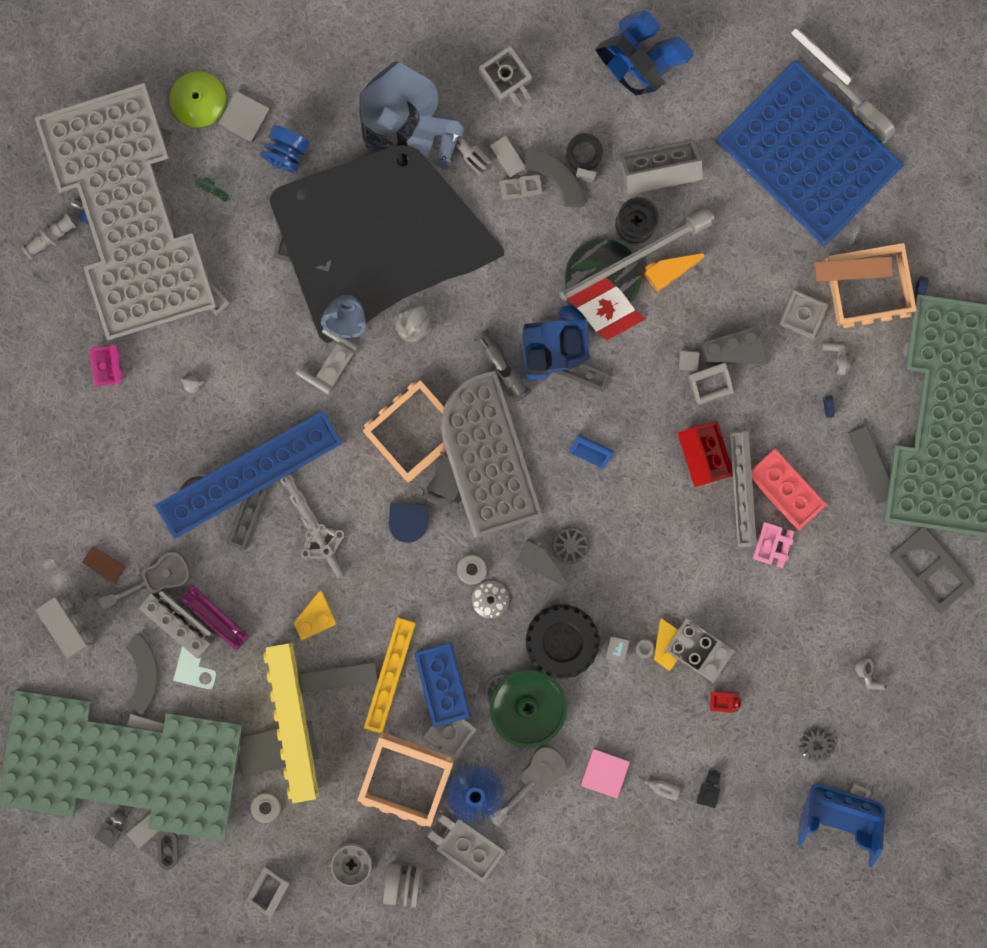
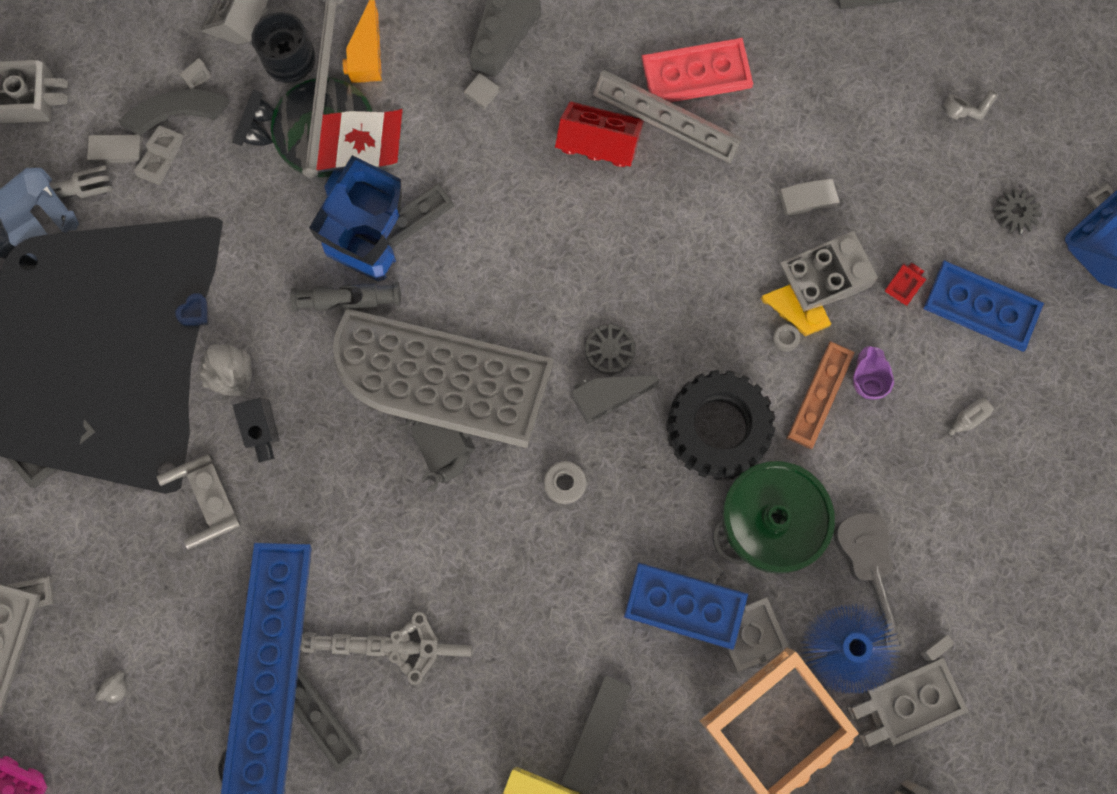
camera: 55 degrees left, 10 degrees down
(315, 617) = (503, 717): yellow wing -> none
(344, 317) = (160, 444): sand blue hair -> none
(386, 412) = (308, 467): light nougat window -> none
(389, 675) = (634, 667): yellow tile -> none
(396, 361) = (252, 416): none -> black torso
(408, 521) = (457, 524): dark blue tile -> none
(436, 278) = (193, 311): none -> dark blue tile
(487, 589) = (615, 497): light grey dish -> none
(508, 844) = (936, 648): none -> light grey tile
(571, 231) = (250, 131): none -> black tile
(587, 138) = (159, 47): black tyre -> none
(591, 451) = (513, 255): blue tile -> none
(605, 773) = (912, 475): bright pink tile -> none
(616, 650) = (769, 369): light grey brick -> none
(621, 690) = (820, 395): none -> nougat tile
(652, 714) = (873, 374): none -> medium lavender hair
(693, 378) = (505, 96): light grey tile -> none
(708, 794) = (1008, 369): black plate -> none
(740, 757) = (983, 306): none -> blue tile
(745, 609) = (808, 196): none -> light grey slope
(768, 543) = (742, 122): bright pink plate -> none

